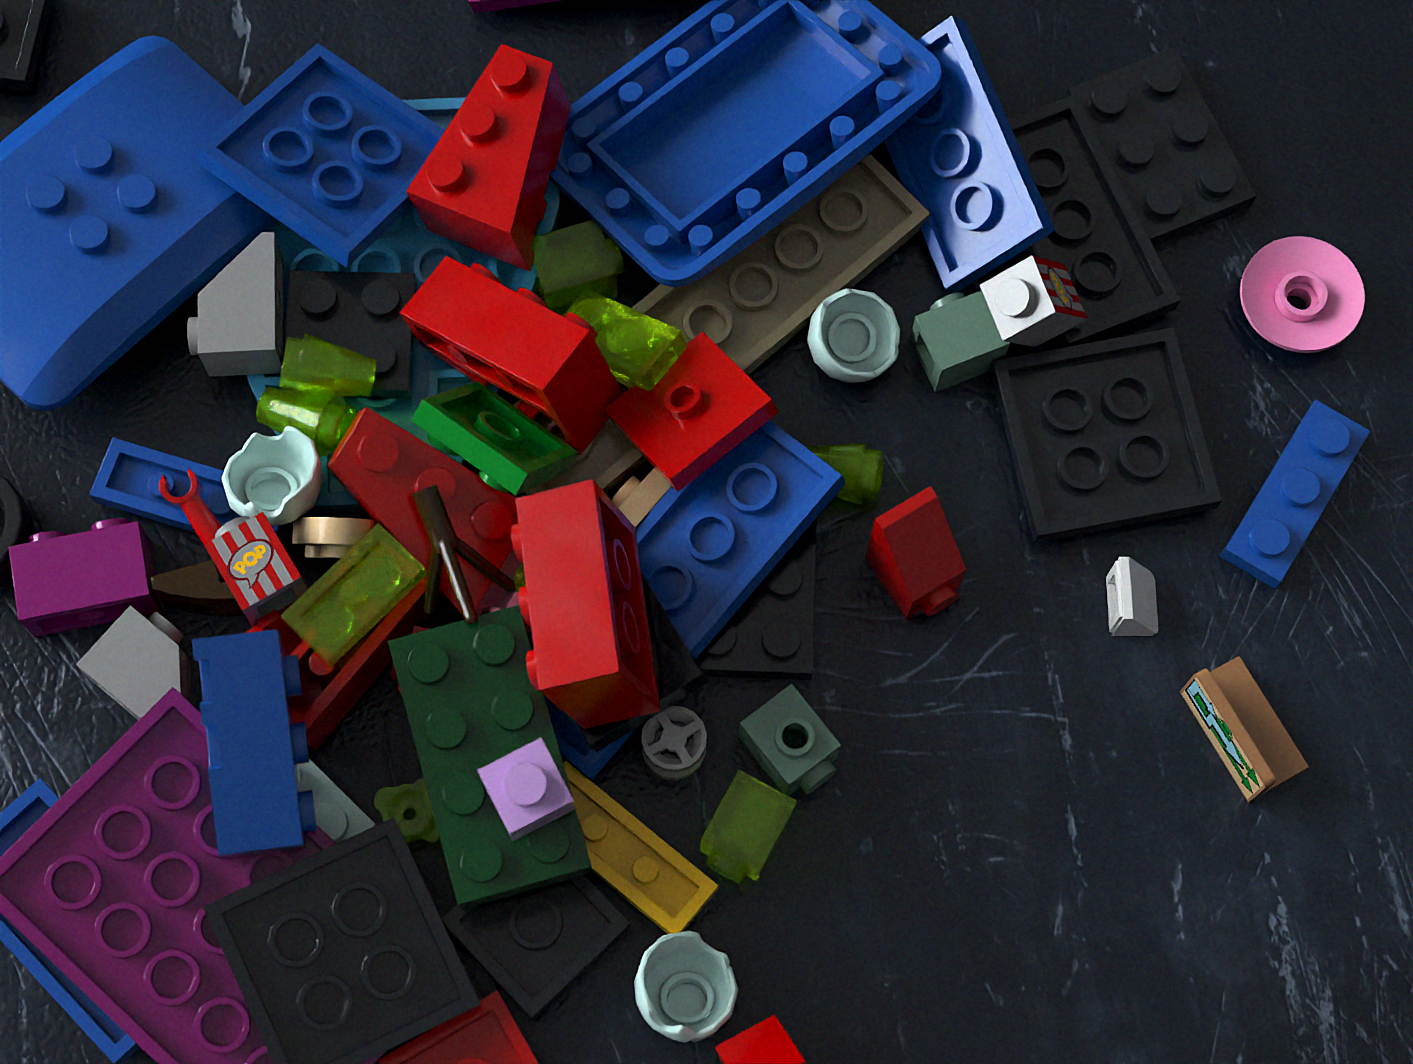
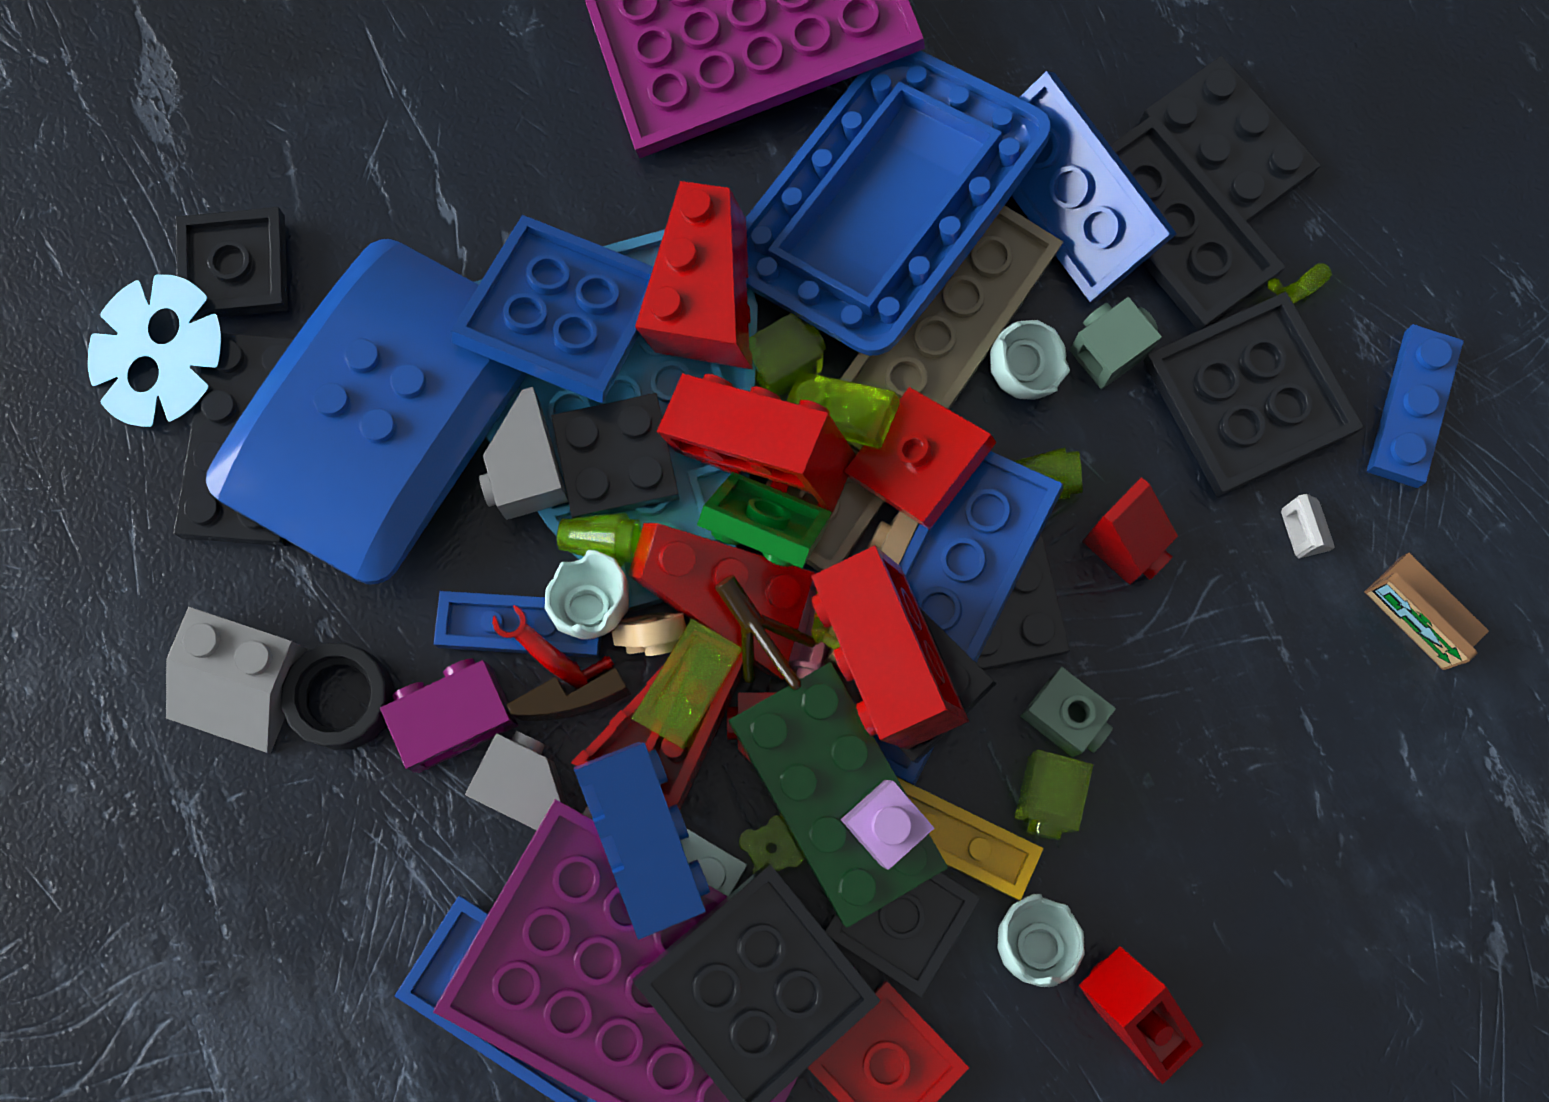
camera: 10 degrees left, 5 degrees up
(255, 566) = (596, 678): brick -> none
(325, 369) = (607, 495): clear neon green cone -> none
(670, 733) = (981, 730): light grey wheel -> none
(1033, 301) = (1172, 297): brick -> none
(1201, 329) = (1305, 285): none -> clear neon green piece
(1316, 275) = (1394, 226): bright pink dish -> none

